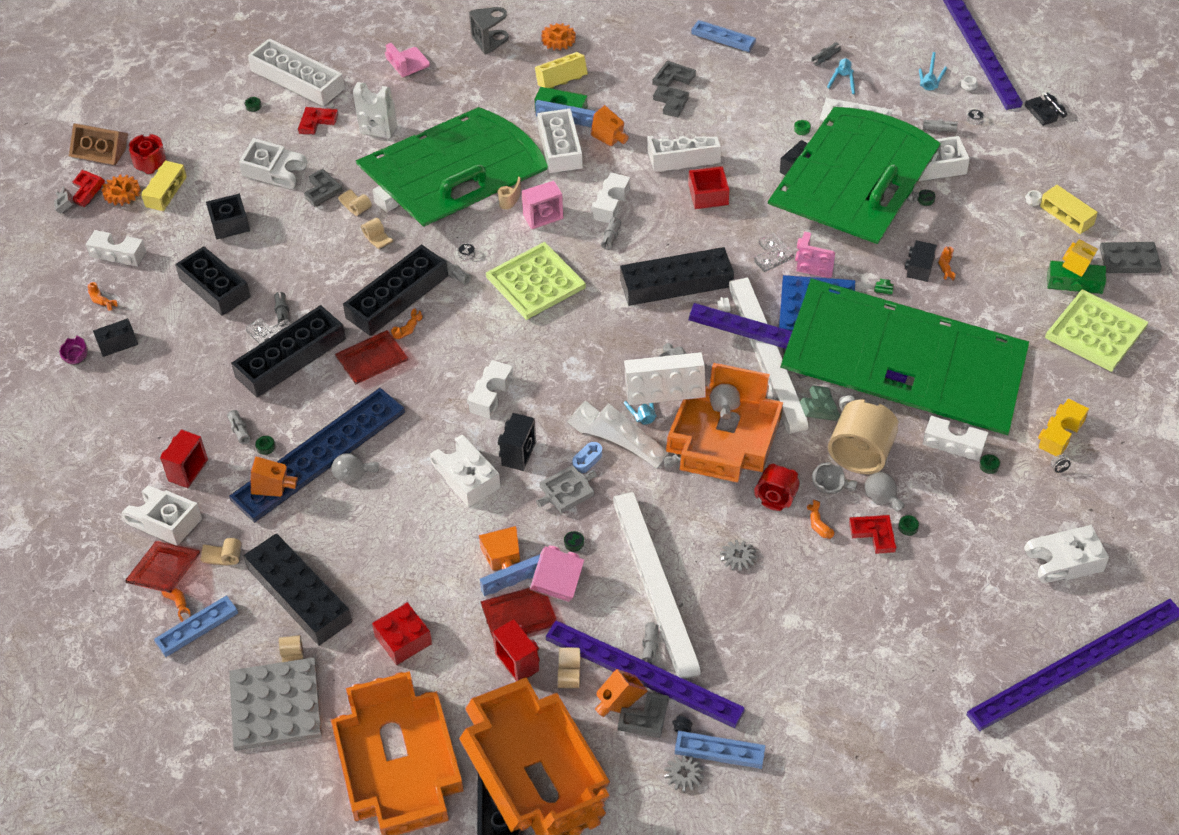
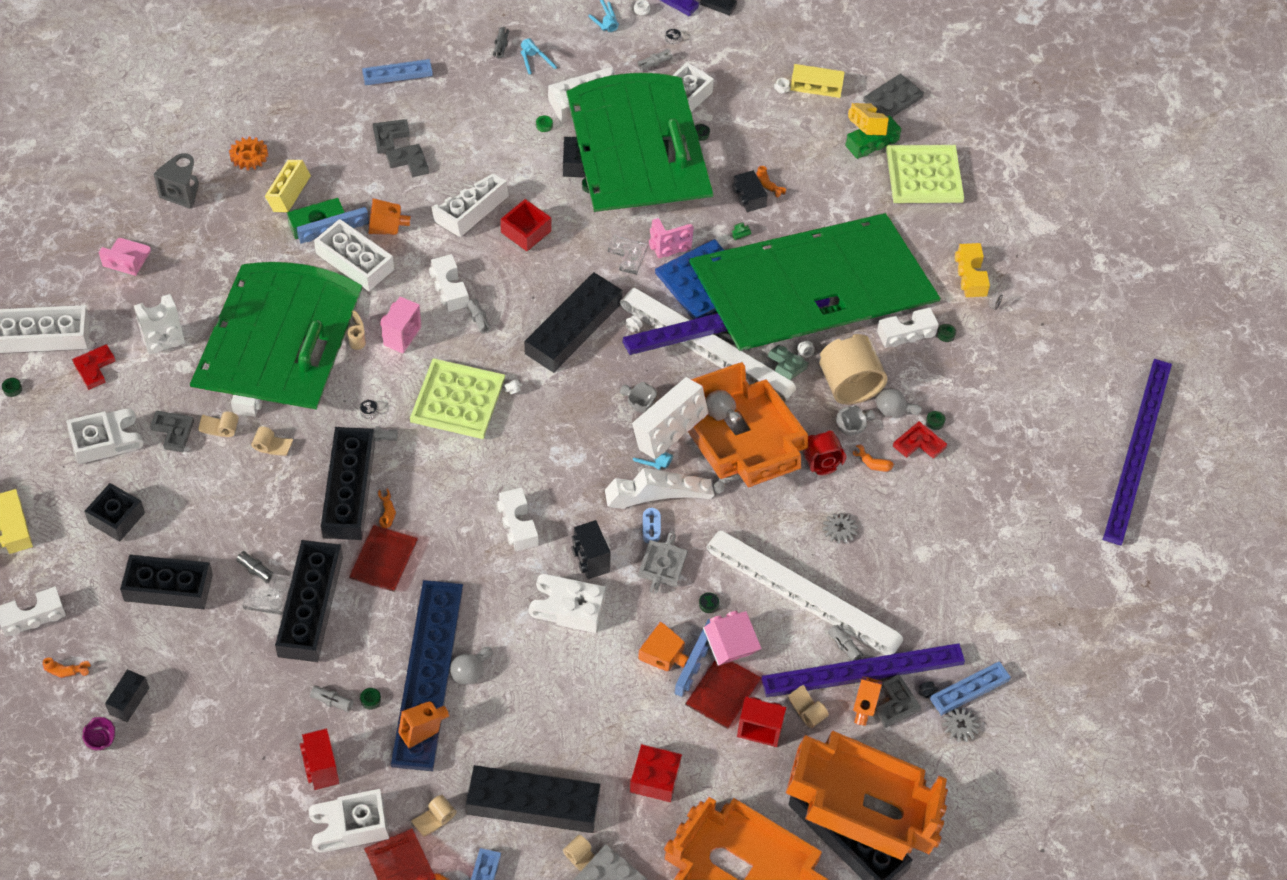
camera: 45 degrees left, 5 degrees up
(584, 295) = (513, 386): none -> white plate
(1068, 554) = (1064, 368): white brick -> none

